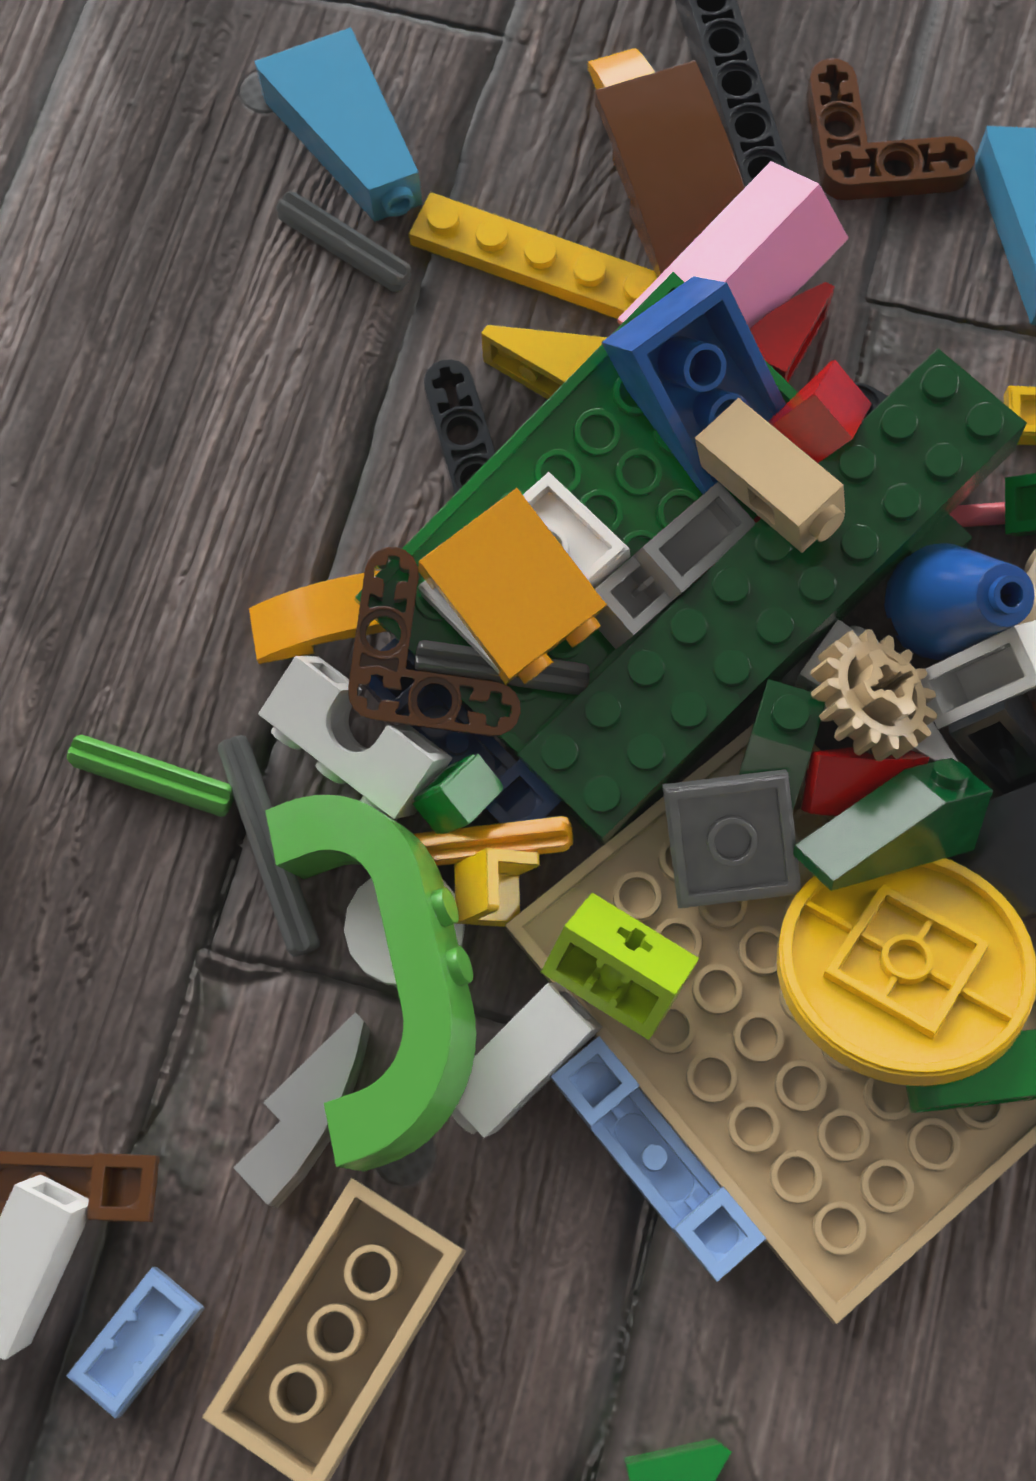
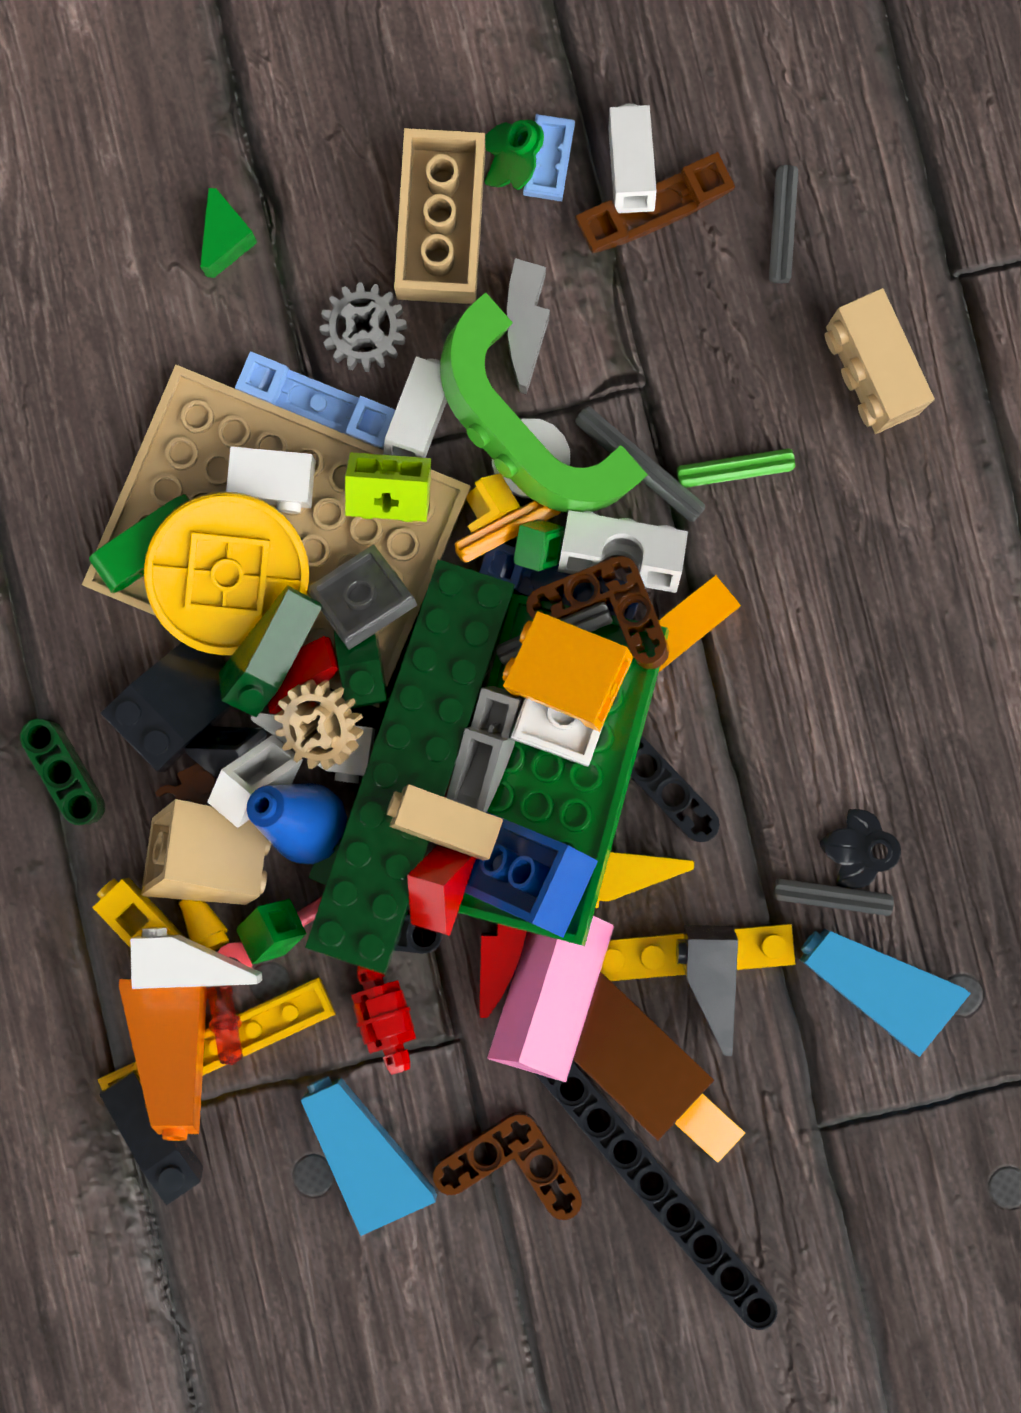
camera: 150 degrees right, 15 degrees up
(190, 1369) = (514, 152): none -> green plate
(285, 278) = (855, 847): none -> black plate
(524, 1202) = (351, 315): none -> light grey gear
(527, 210) = (711, 970): none -> slope
(778, 1069) = (273, 476): none -> white brick
(955, 326) = (384, 1019): none -> red piece

